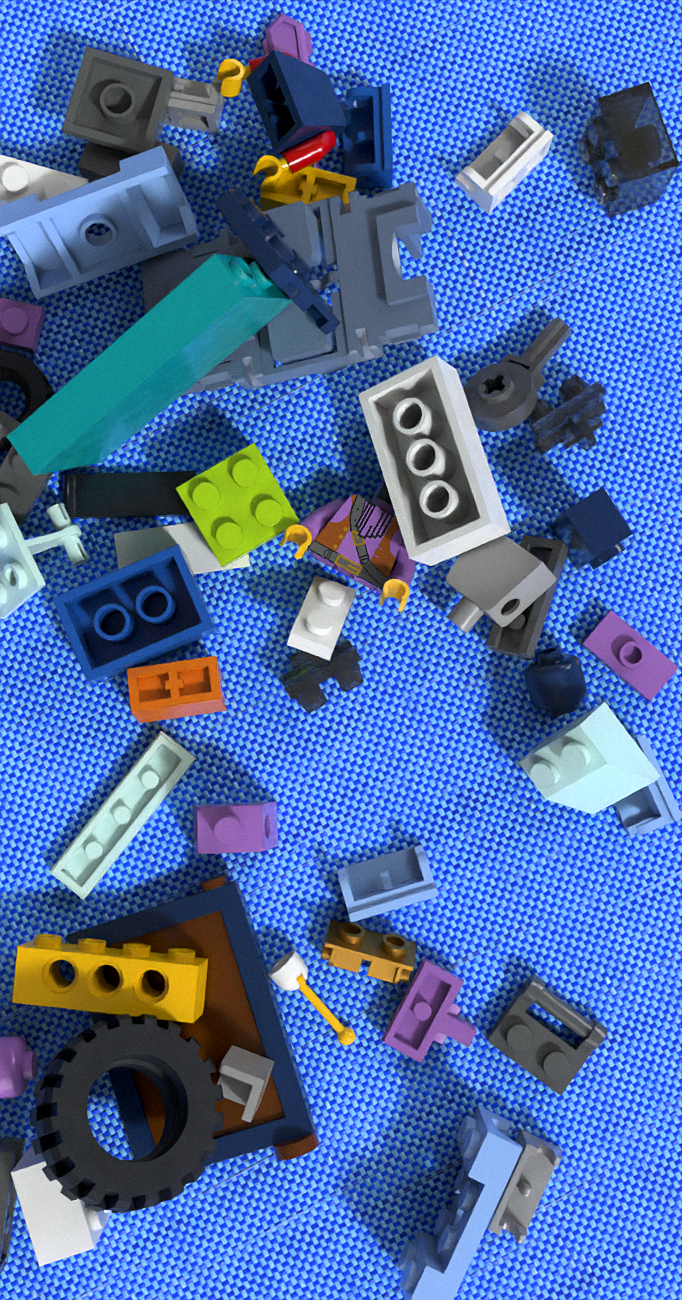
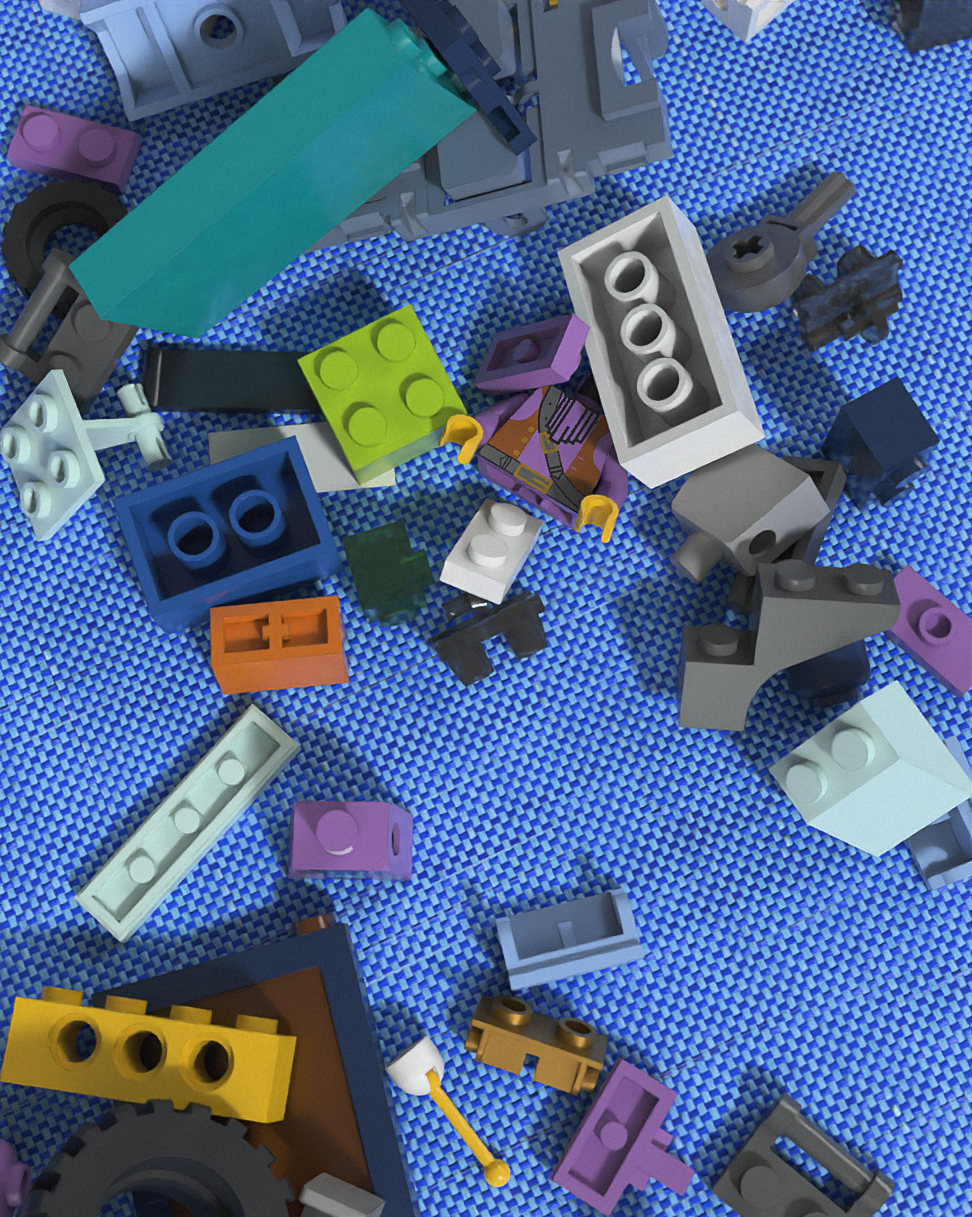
camera: 10 degrees right, 10 degrees down
(249, 635) = (388, 574): none -> clear green brick
(343, 473) = (532, 356): none -> medium lavender plate
(533, 663) = (793, 618): none -> dark grey arch

